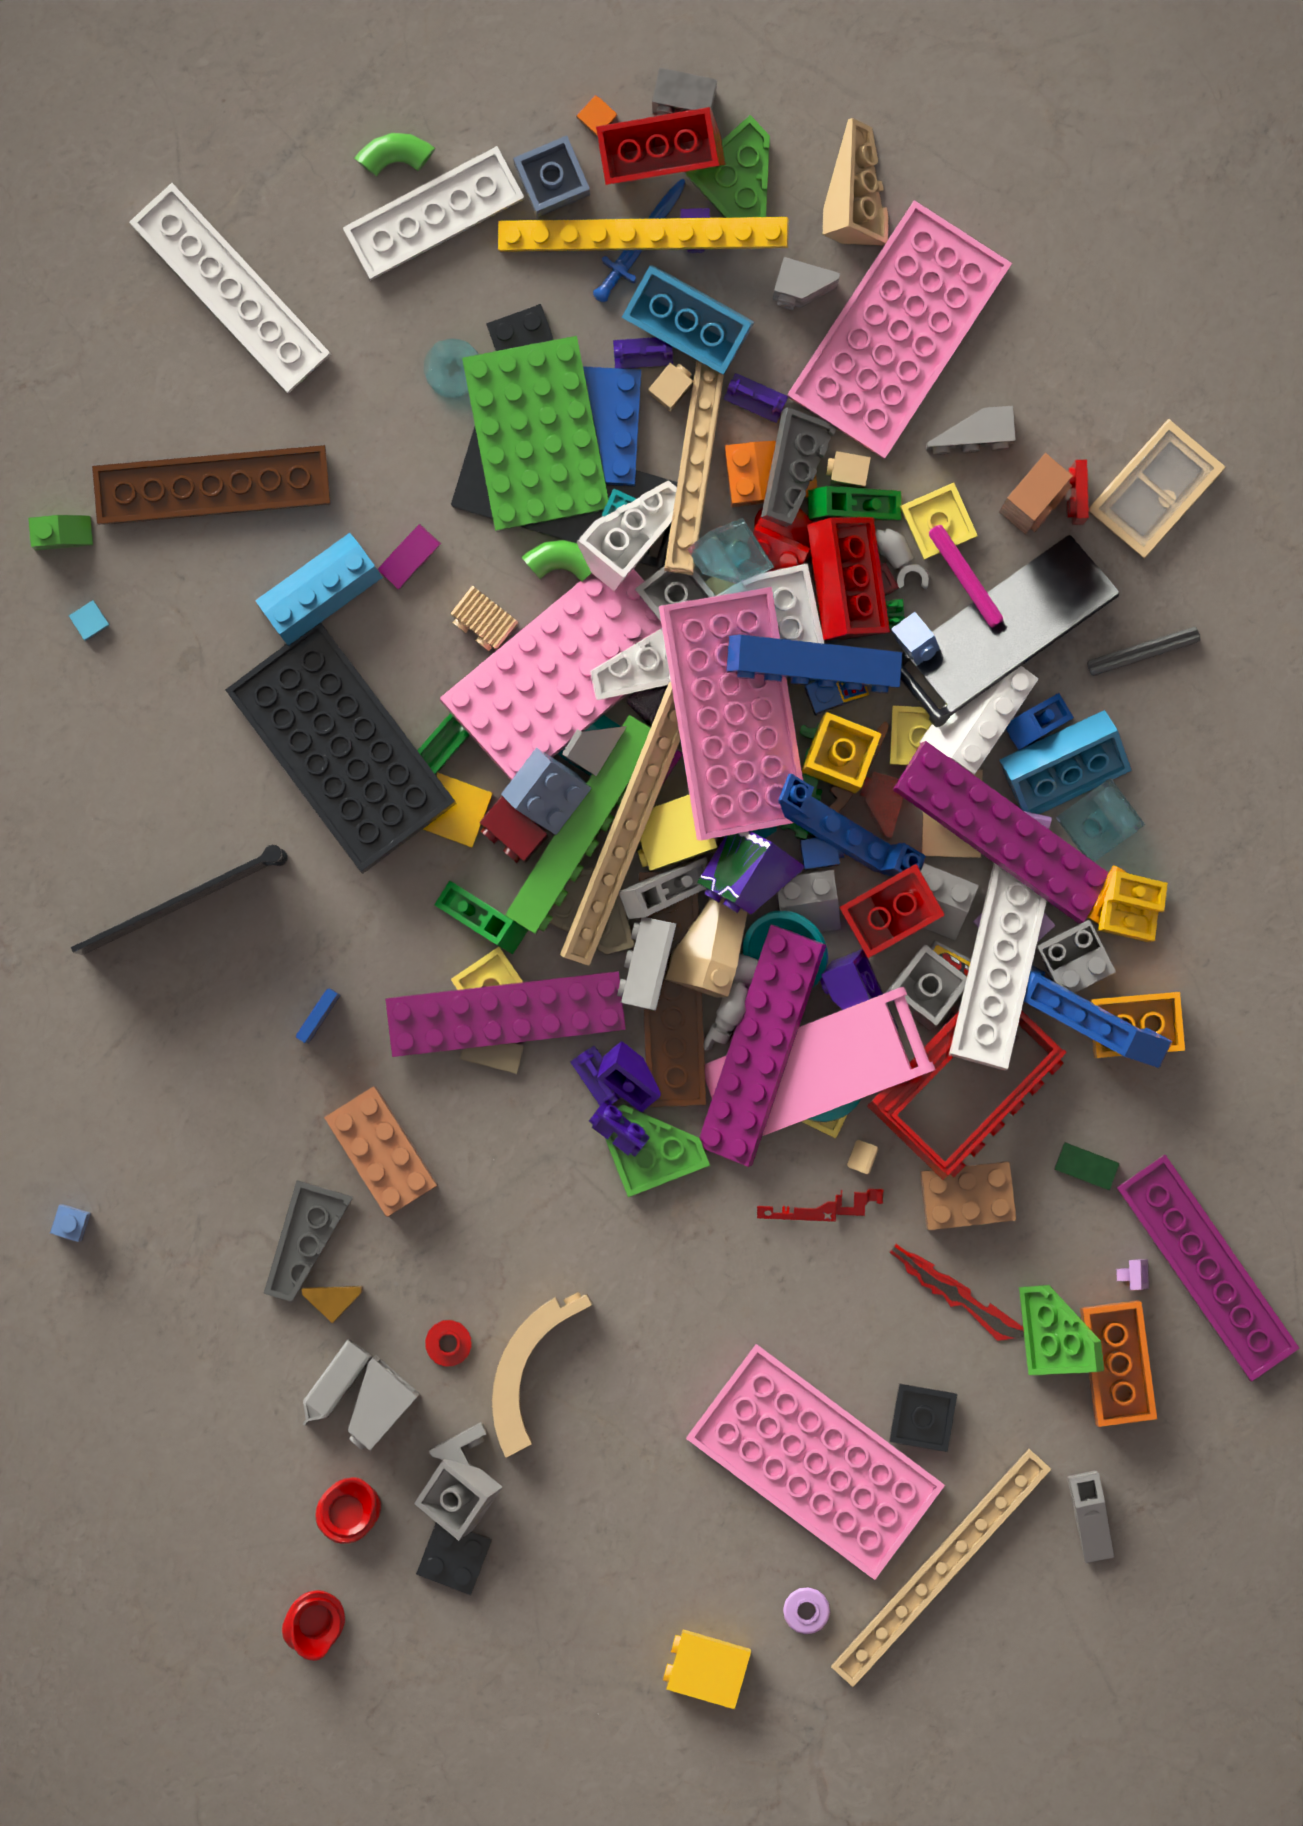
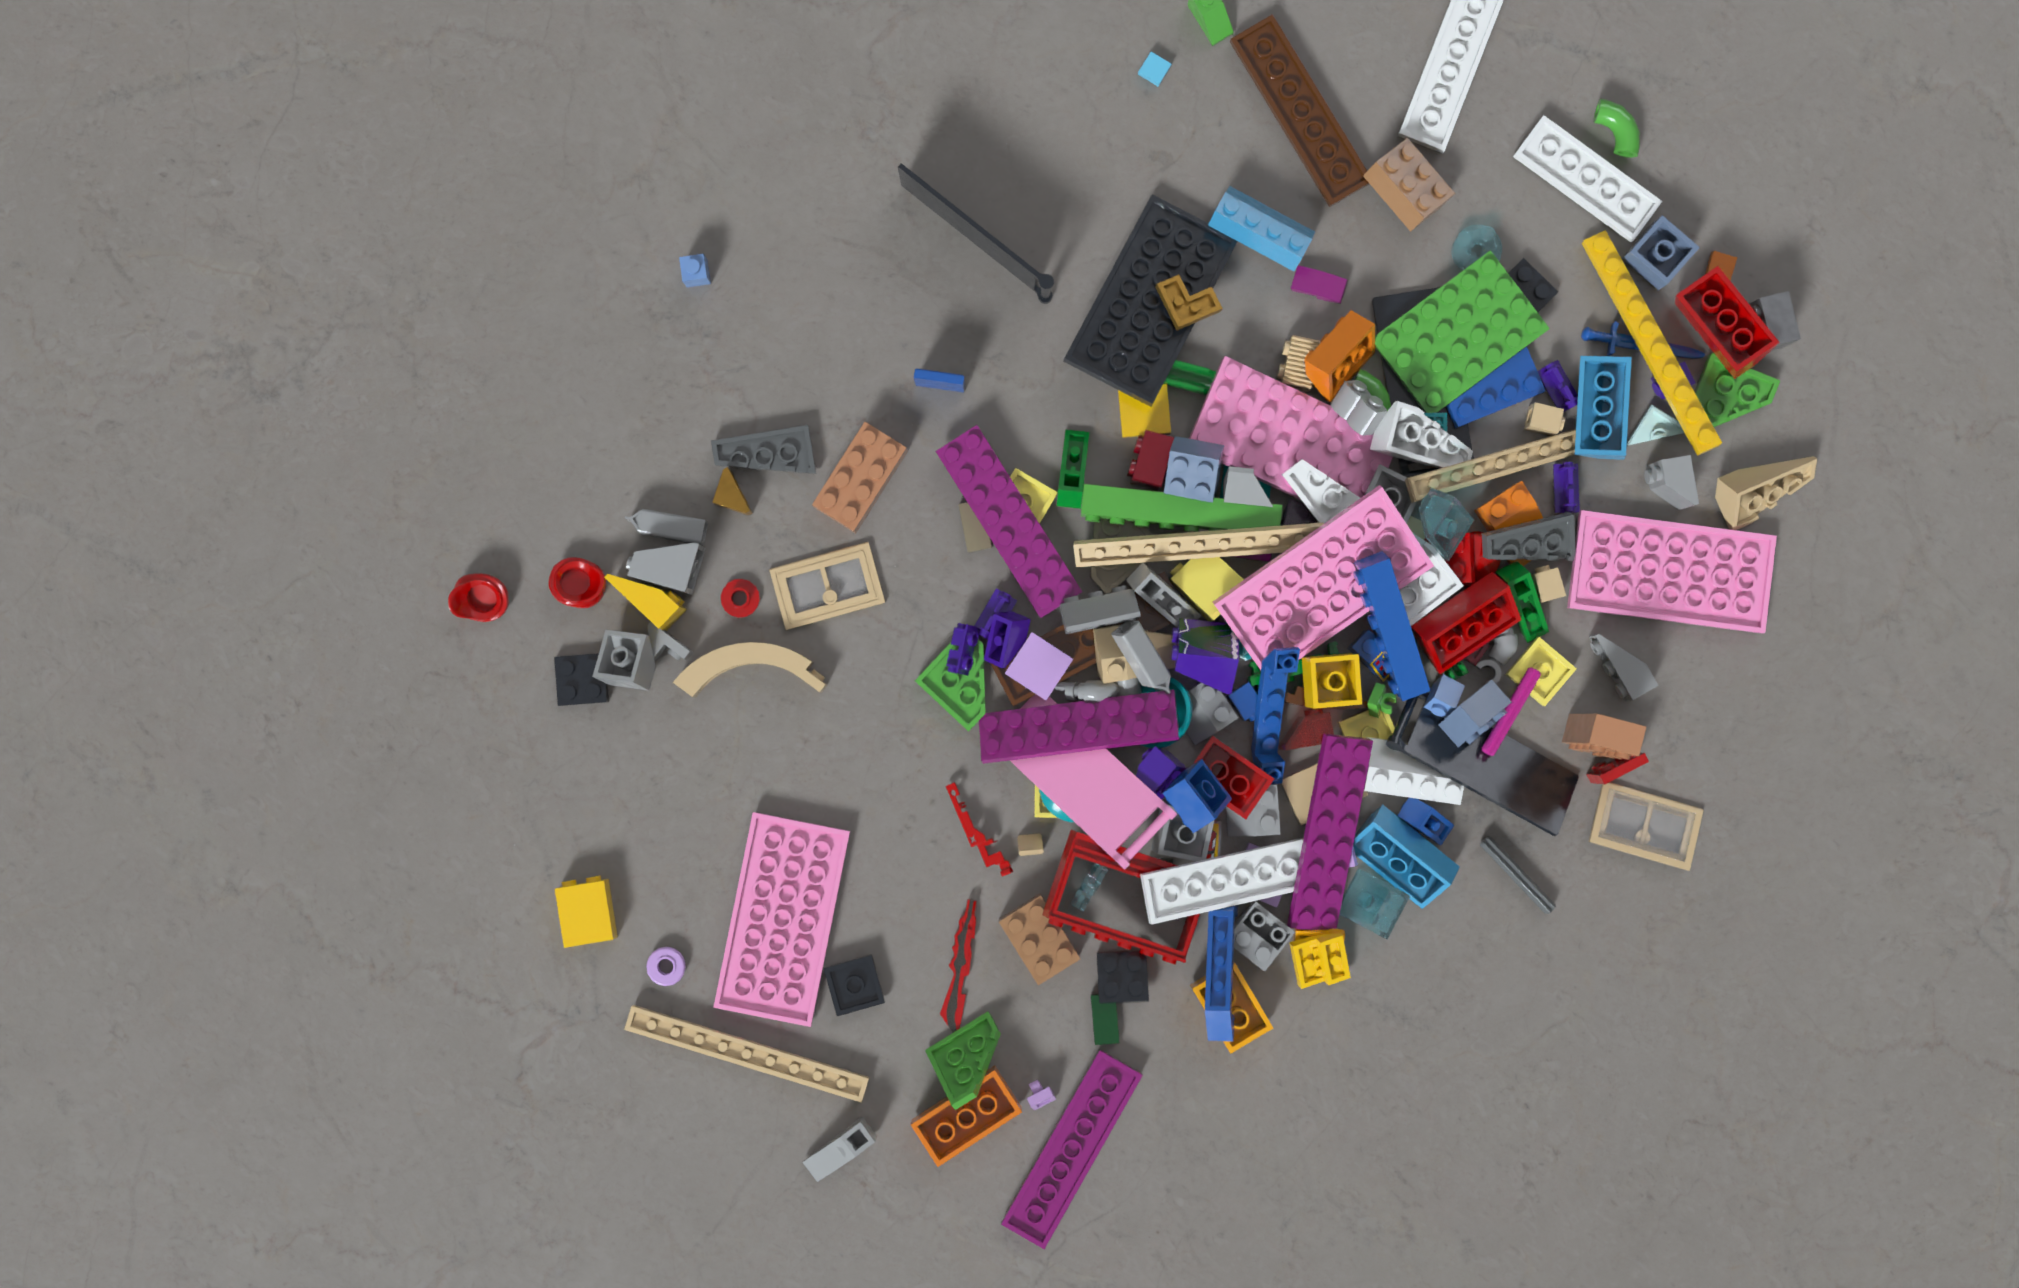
camera: 60 degrees right, 0 degrees up
(348, 410) = (1408, 184): none -> medium nougat brick
(367, 718) = (1184, 308): none -> pearl gold plate
(412, 1436) = (657, 605): none -> yellow slope
(479, 1242) = (827, 585): none -> tan door
(497, 572) = (1340, 354): none -> orange slope
(563, 581) = (1359, 407): none -> light grey brick
(676, 1056) = (1038, 666): none -> lavender tile
(718, 941) = (1142, 656): none -> light grey piece
(733, 272) = (1653, 426): none -> light aqua tile
(885, 711) = (1378, 701): none -> bright green tile
(895, 955) = (1197, 796): none -> blue brick
(937, 1115) = (1089, 887): none -> clear light blue plate
(950, 616) = (1476, 714): none -> sand blue brick
(1051, 1126) = (1122, 977): none -> black plate

